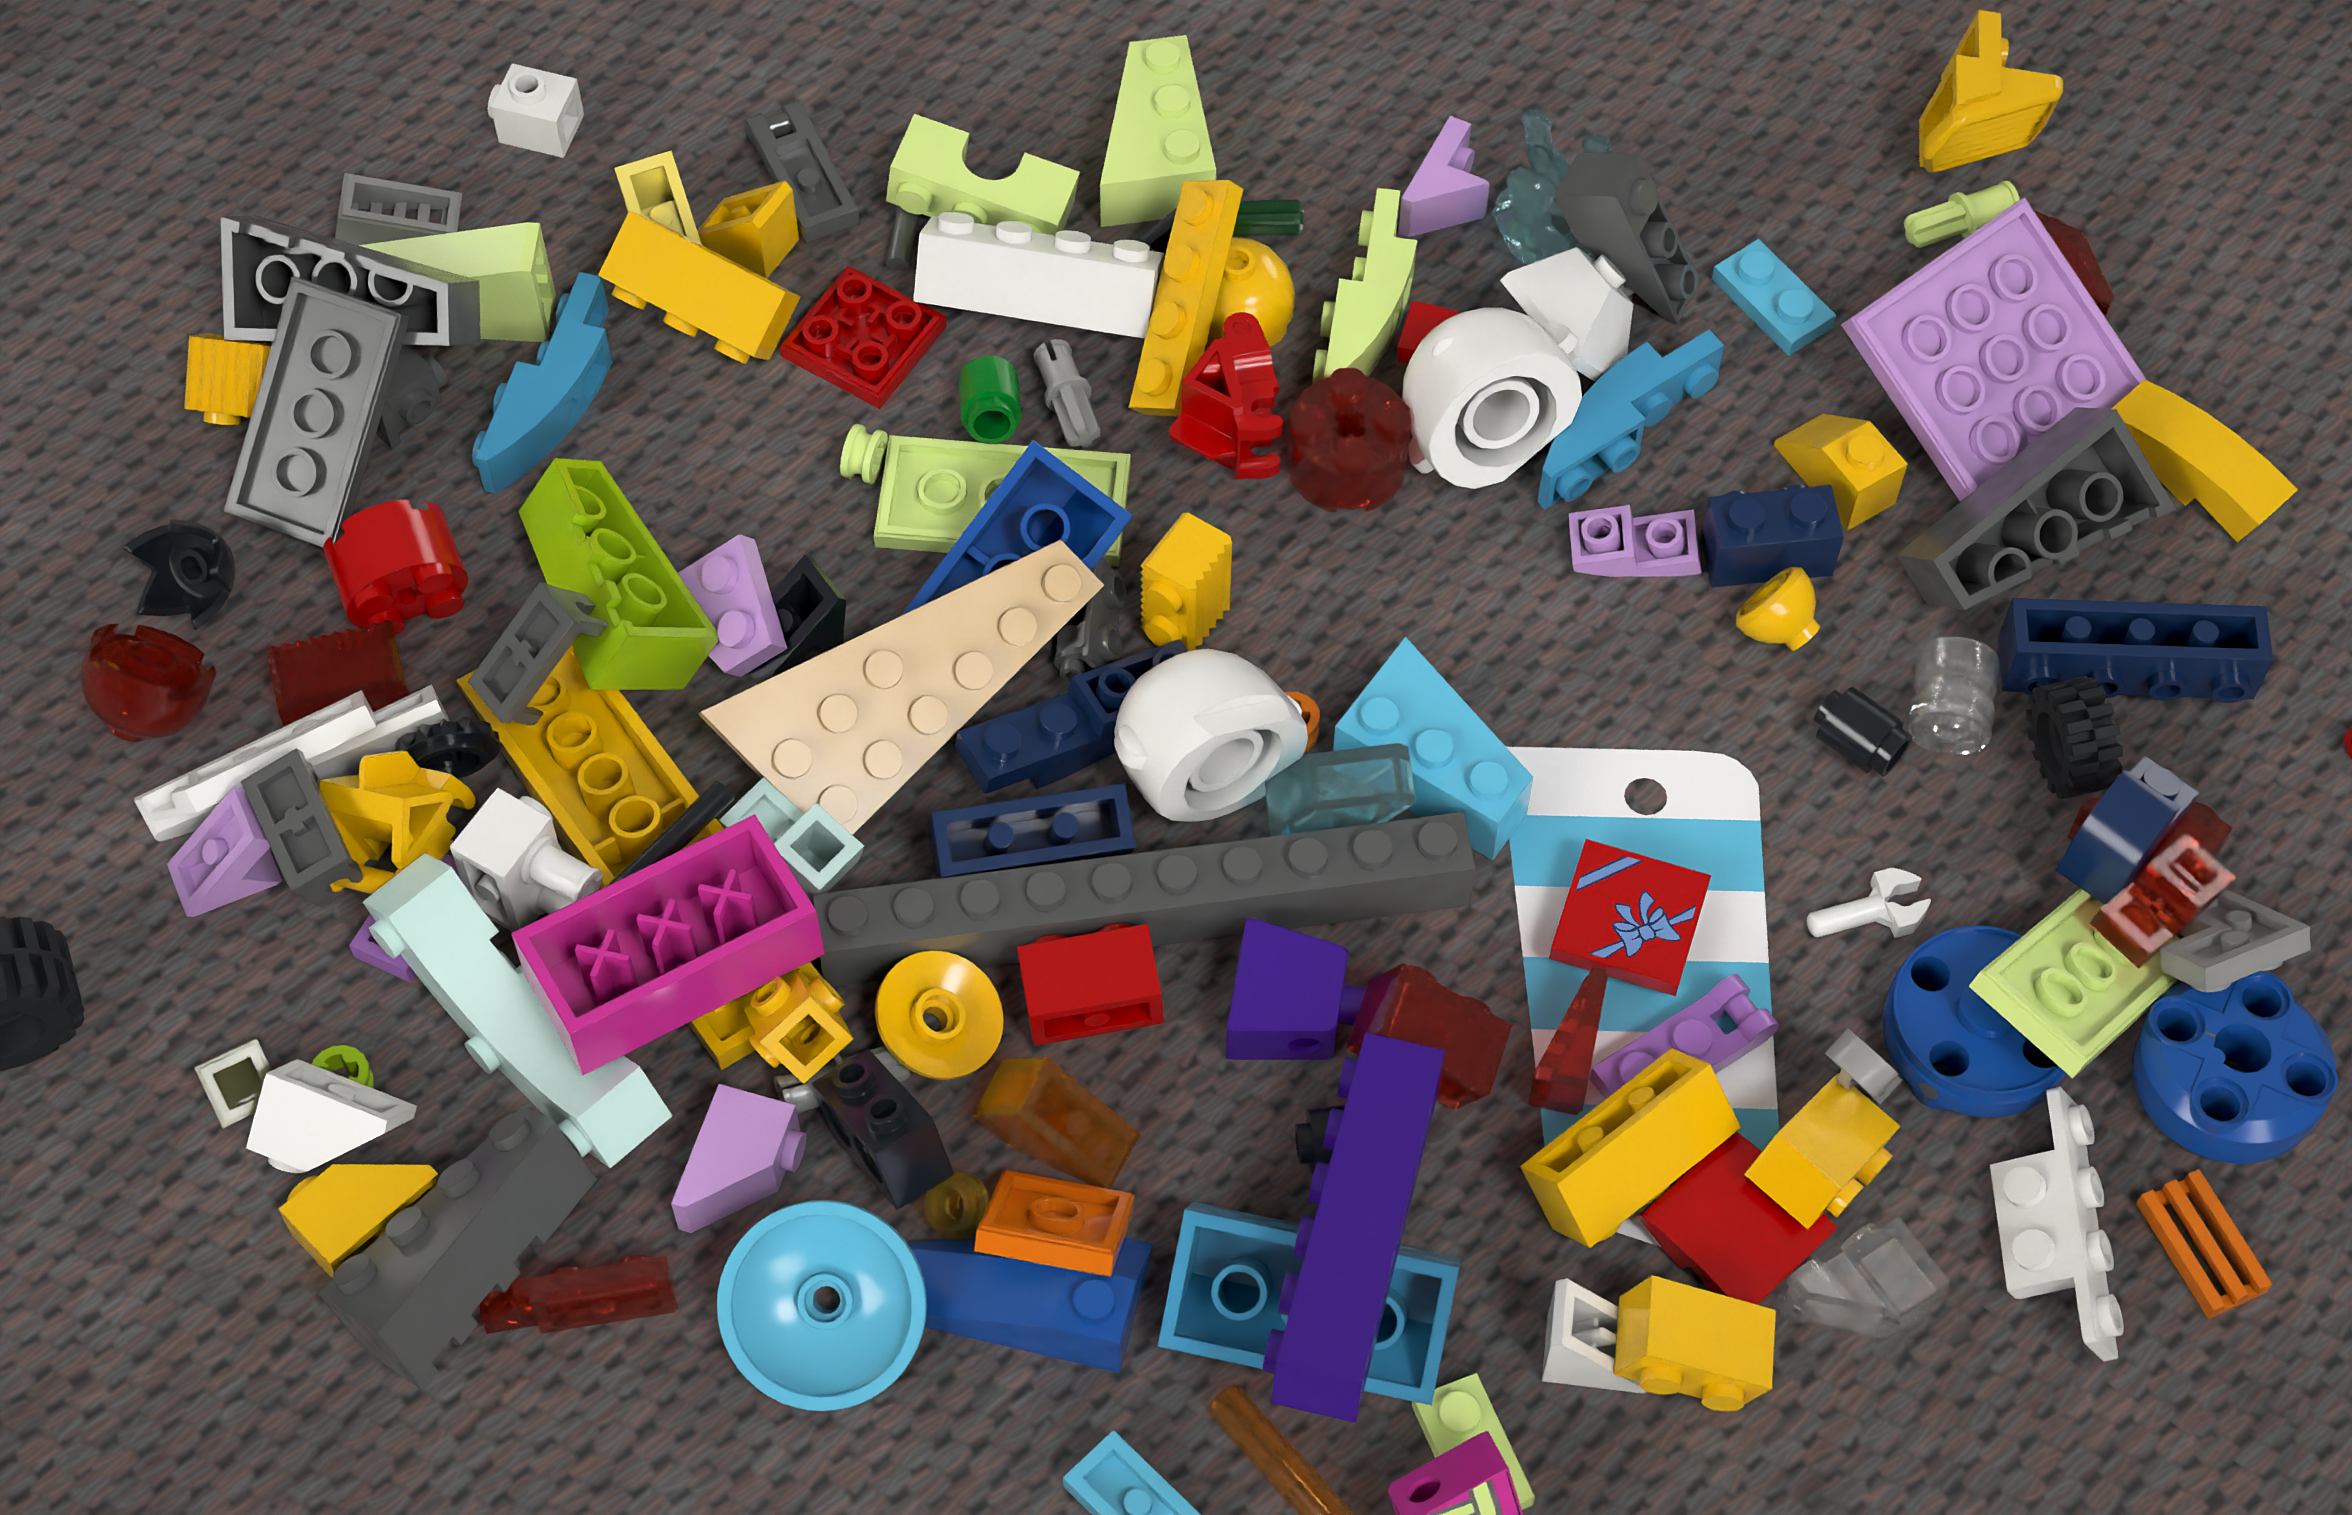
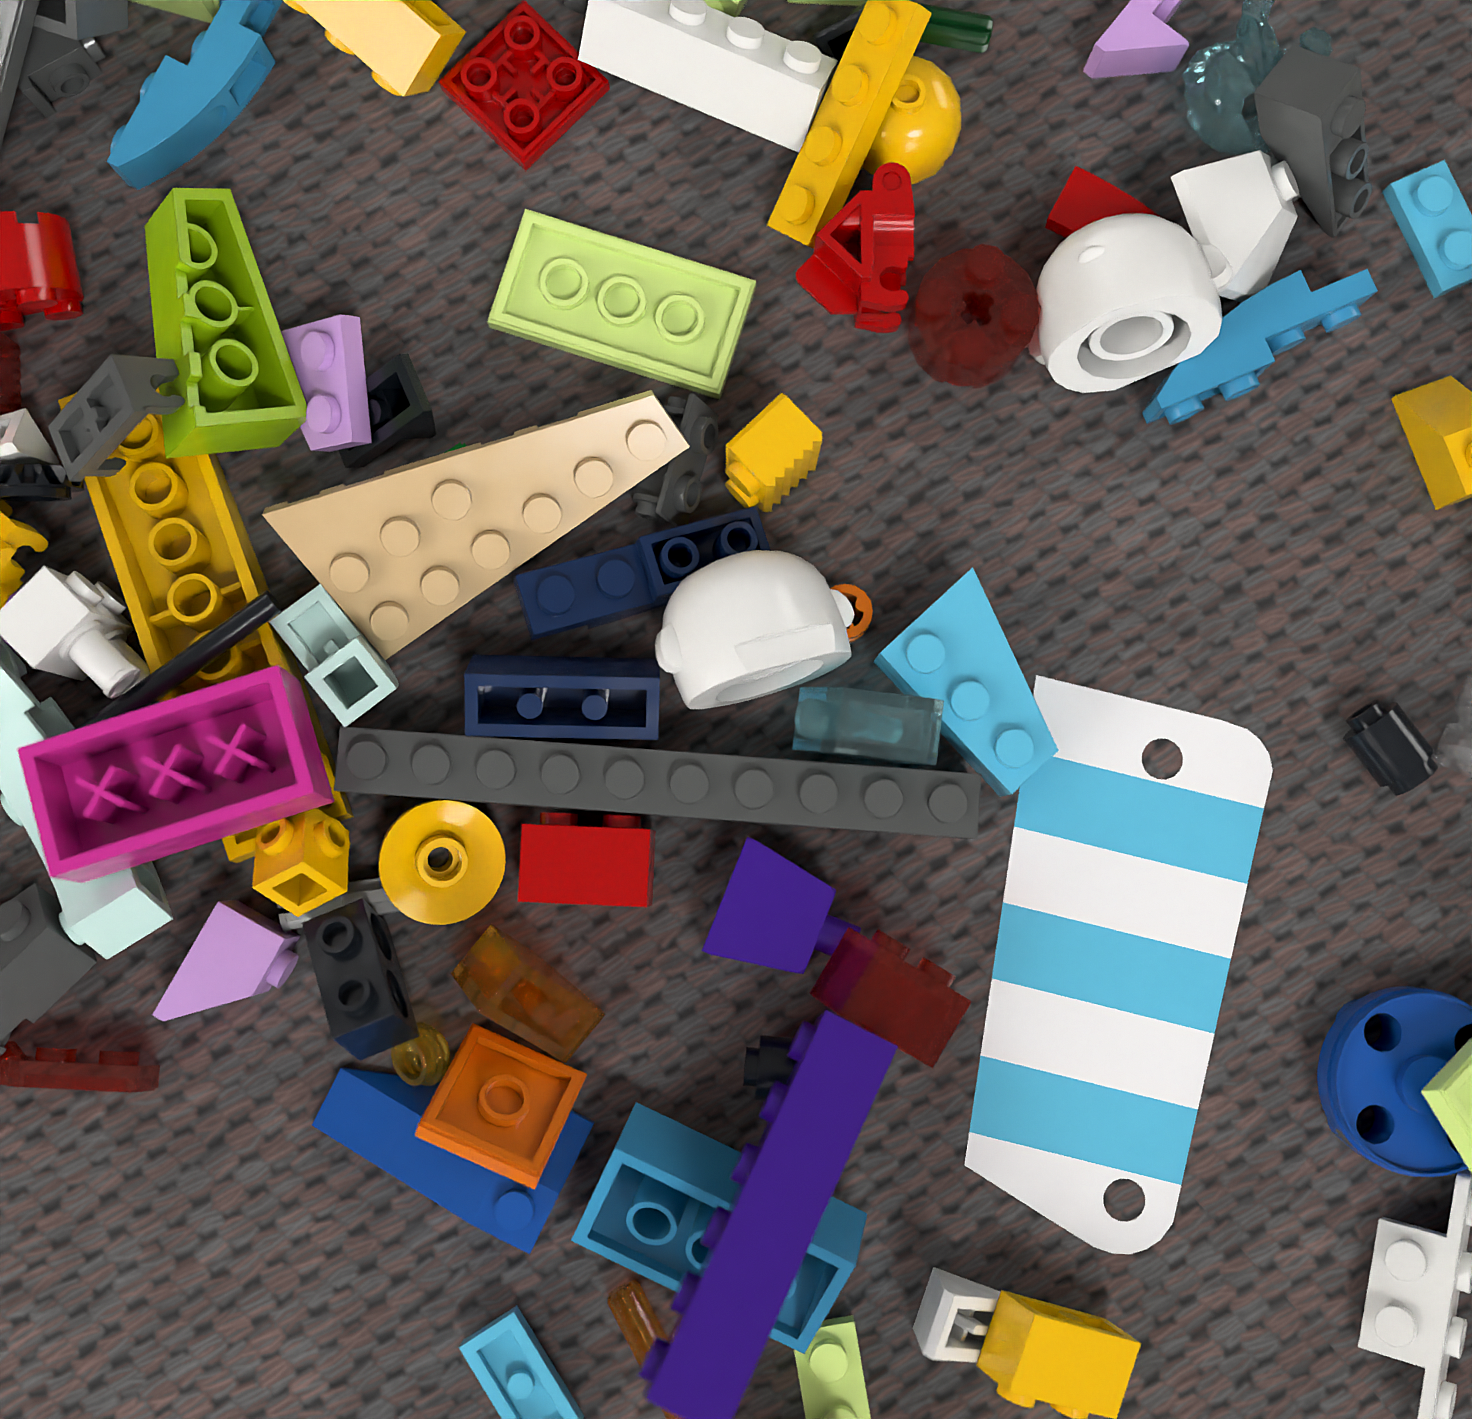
camera: 10 degrees right, 25 degrees up
(792, 1343) = (272, 1143): medium azure dish -> none
(863, 453) = (494, 226): yellowish green bush -> none
(989, 399) = (629, 192): green brick -> none
(1029, 510) = (643, 345): blue wedge -> none
(1067, 394) = (709, 198): light grey axle -> none
(1374, 300) = (1036, 156): yellowish green slope -> none
(1565, 1067) = (1021, 1031): clear red slope -> none
(1623, 546) = (1224, 485): lavender slope -> none
(1630, 917) = (1114, 897): red tile -> none
(1630, 1147) = (1052, 1148): yellow brick -> none
(1694, 1034) = (1125, 1041): medium lavender plate -> none
(1730, 1227) = (1129, 1229): red slope -> none
(1763, 533) = (1364, 512): dark blue brick -> none
(1781, 610) = (1347, 595): yellow brick -> none
(1823, 1151) = (1230, 1195): yellow brick -> none
(1862, 1067) = (1291, 1120): light grey piece -> none
(1870, 1288) = (1234, 1320): clear slope -> none
(1875, 908) = (1345, 929): white bar -> none

